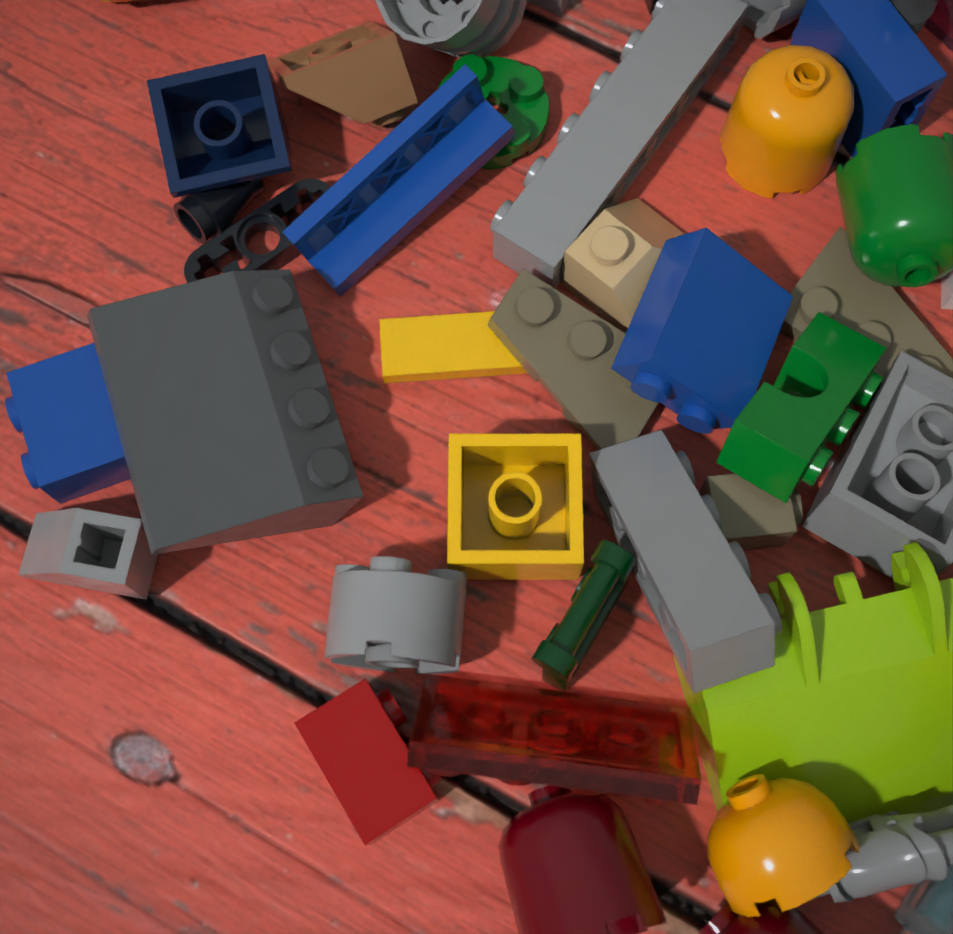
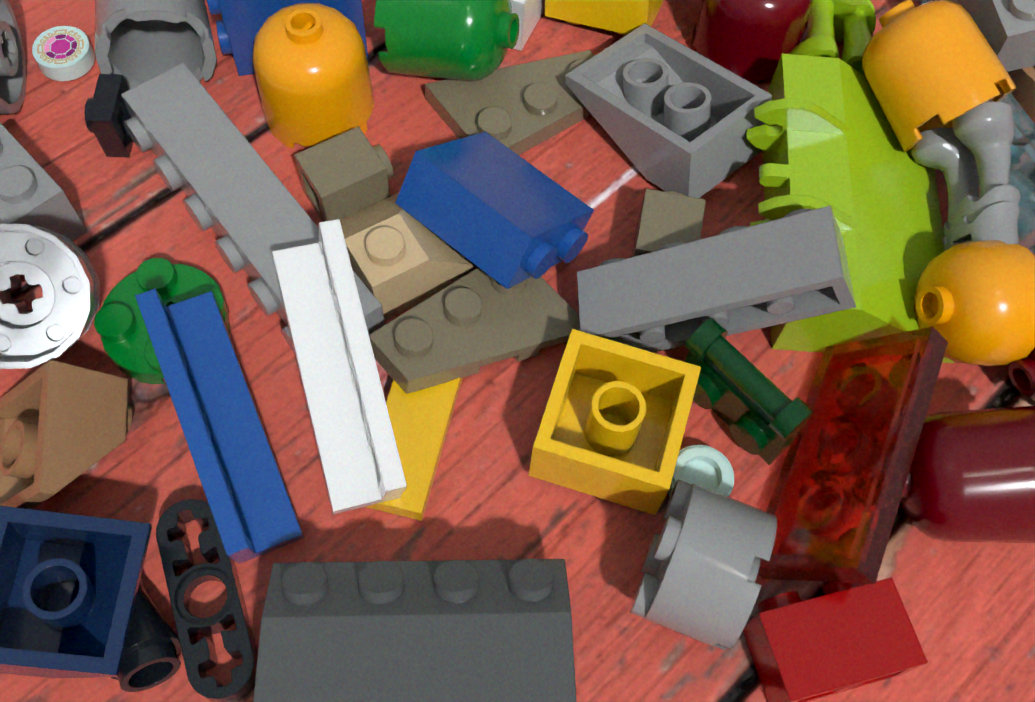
camera: 80 degrees left, 10 degrees down
(472, 252) = (339, 372): none -> white fence
(499, 611) = (705, 468): none -> light aqua tile
(693, 190) = (344, 174): none -> dark tan brick
(787, 425) = (622, 165): green arch -> none

